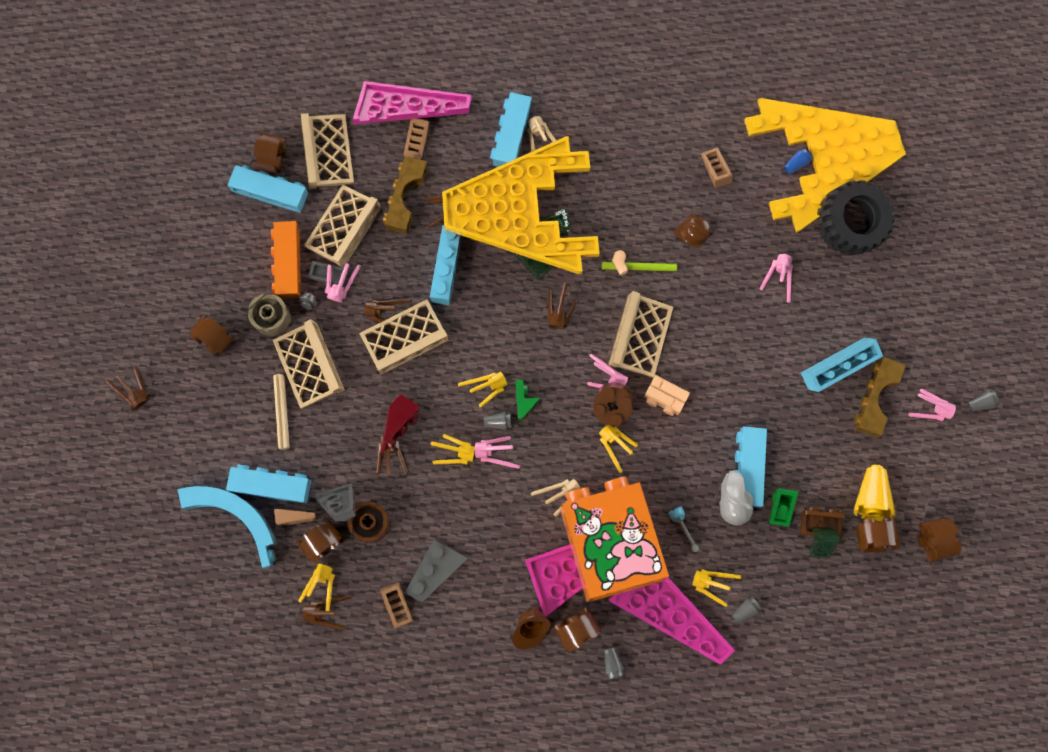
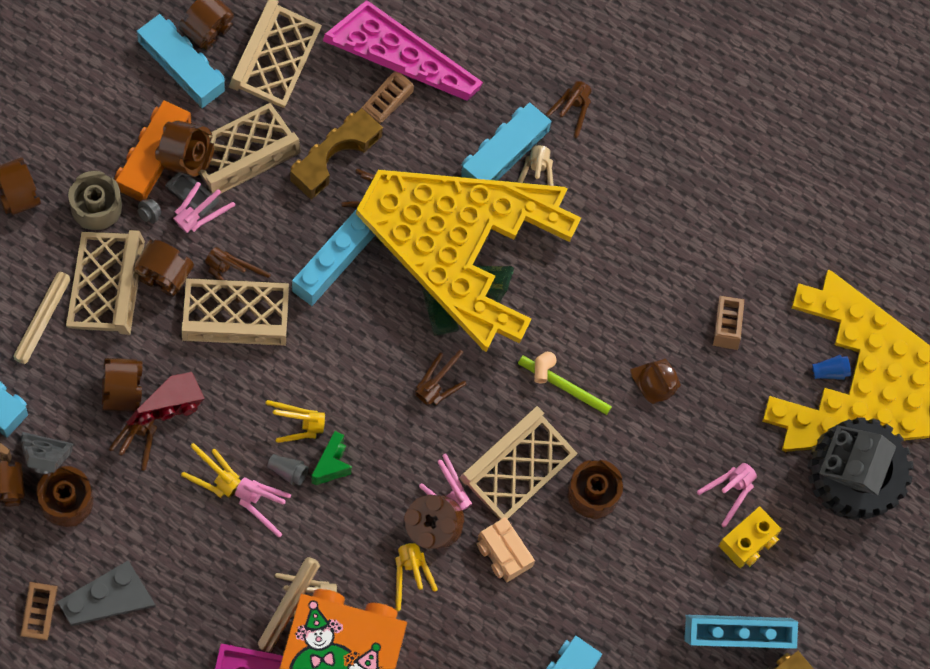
camera: 20 degrees right, 10 degrees down
(307, 247) = (185, 148): none -> reddish brown brick
(340, 333) = (163, 266): none -> reddish brown brick
(360, 428) = (120, 384): none -> reddish brown brick
(536, 71) = (576, 96): none -> reddish brown plant
(554, 511) = (288, 604): none -> tan axle
(709, 321) = (592, 475): none -> reddish brown brick
(811, 300) = (750, 538): none -> yellow brick
(857, 213) = (858, 459): none -> dark grey slope

